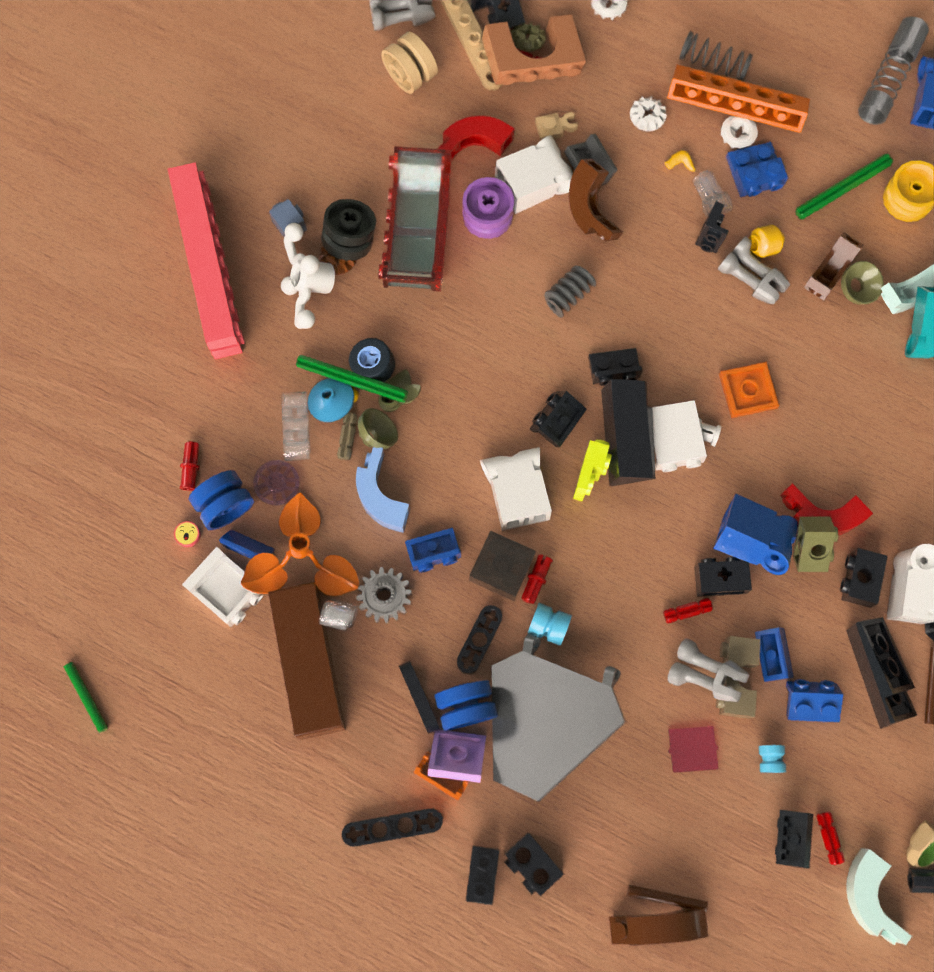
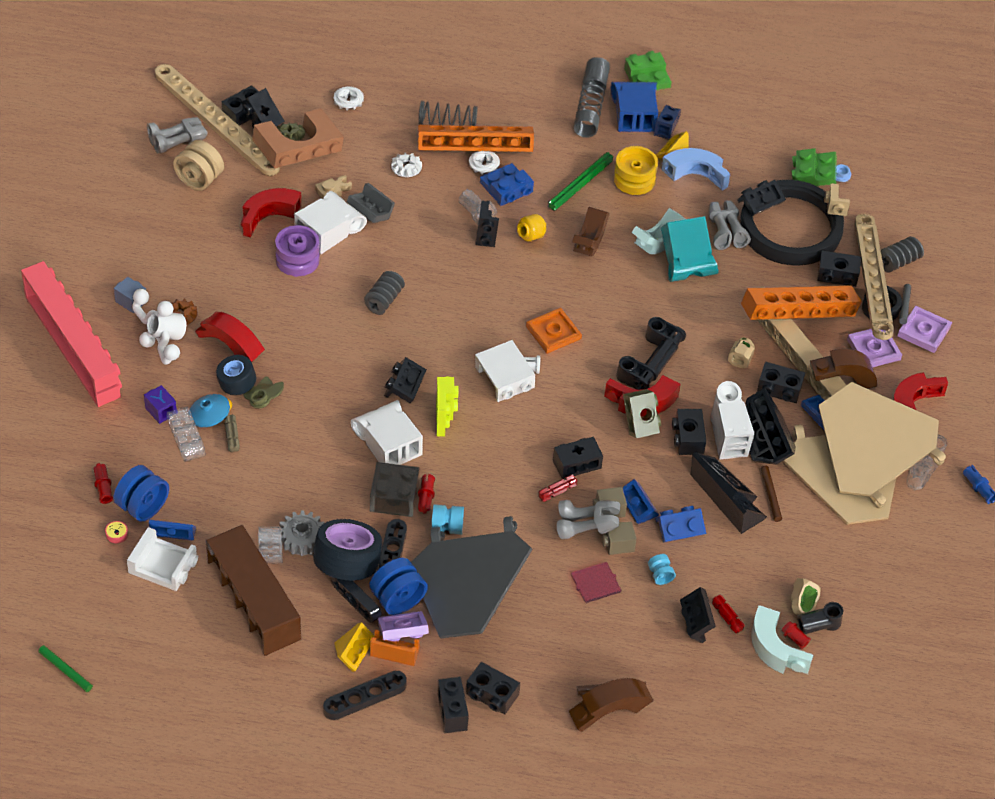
camera: 20 degrees left, 25 degrees down
(276, 482) = (182, 478): wheel -> none
(278, 377) = (158, 403): none -> dark purple brick
(298, 522) = (214, 499): orange plant -> none
(348, 229) = (186, 286): pearl dark grey wheel -> none
(351, 378) = (223, 388): green axle -> none
(381, 309) = (232, 333): none -> red arch
(381, 428) = (256, 420): olive piece -> none
(381, 509) = (271, 471): light blue arch -> none
(396, 760) = (354, 645): none -> yellow slope
(417, 218) = (240, 265): clear light blue windscreen -> none
(423, 641) = (347, 549): none -> black wheel
(433, 550) = (333, 493): blue bracket -> none
(584, 200) = (373, 225): reddish brown arch -> none
(614, 365) = (439, 337): black bracket -> none
(628, 431) = (464, 362): black slope -> none
(678, 157) = (441, 188): yellow animal -> none
(757, 535) = (594, 417): blue piece -> none
(771, 280) = (543, 255): light grey piece -> none
(859, 464) = (664, 336): none -> black piece
(869, 278) = (621, 234): olive piece -> none
(897, 886) = (795, 634): none -> red pin

